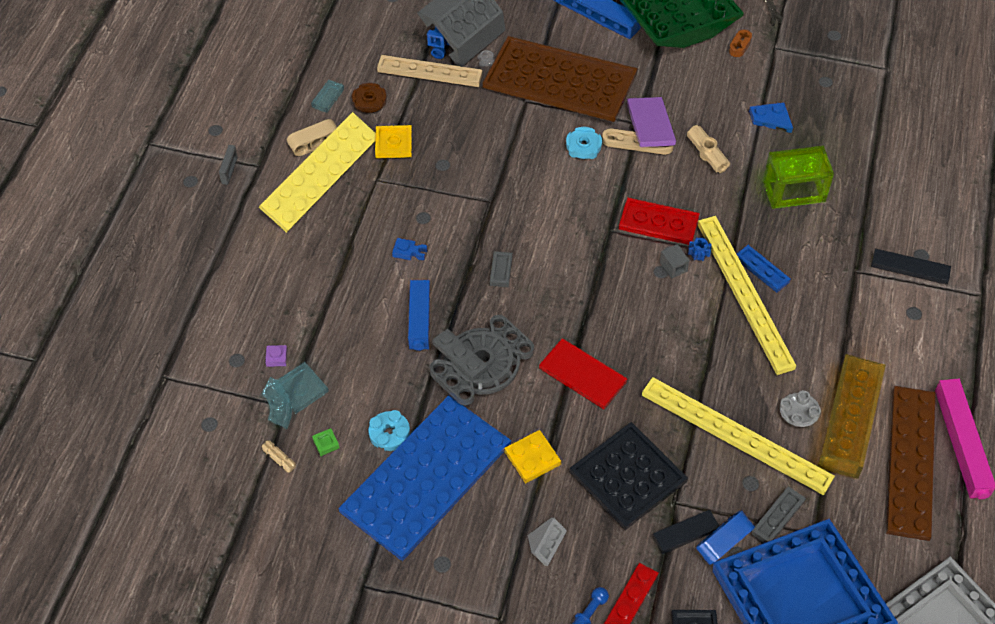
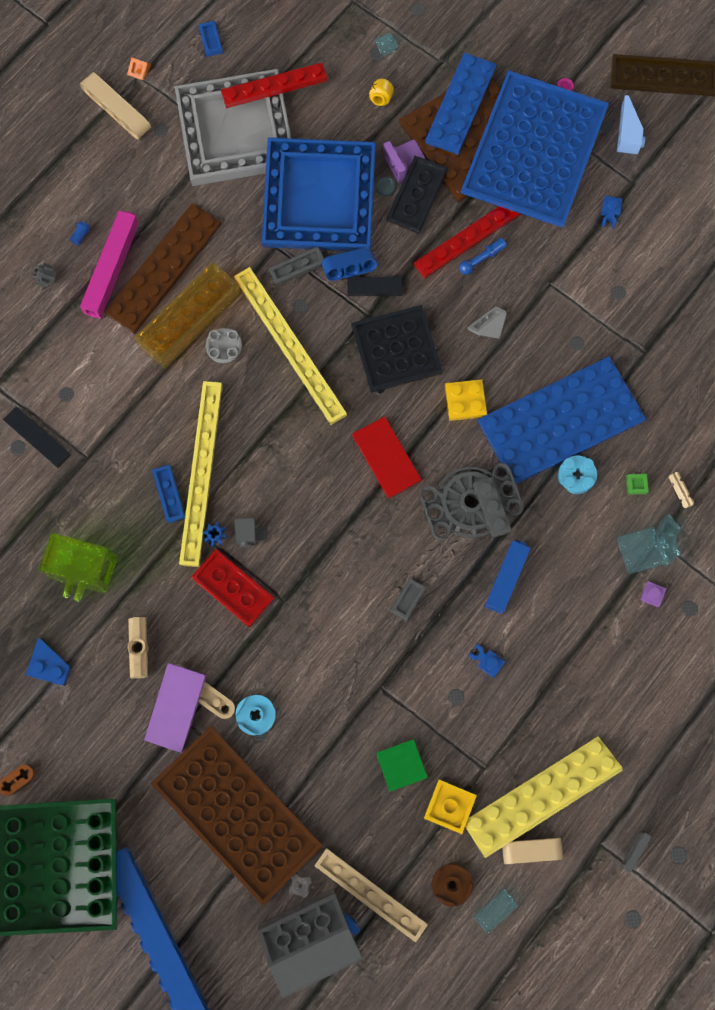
camera: 155 degrees left, 20 degrees up
(446, 155) = (401, 765): none -> green tile

